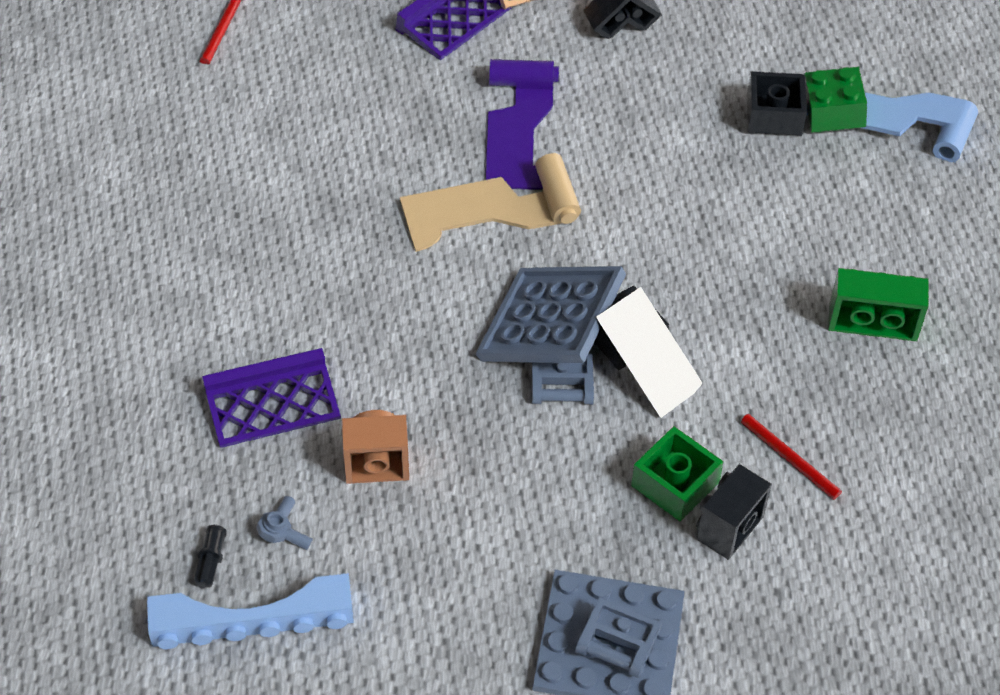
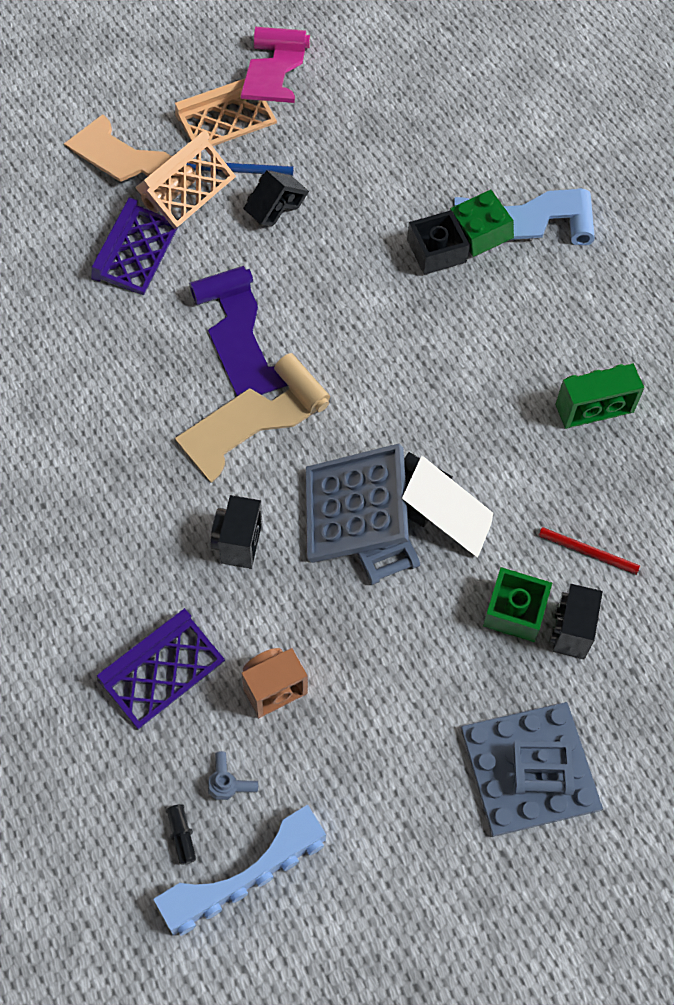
camera: 25 degrees left, 10 degrees up
(414, 298) = (237, 531): none -> black piece

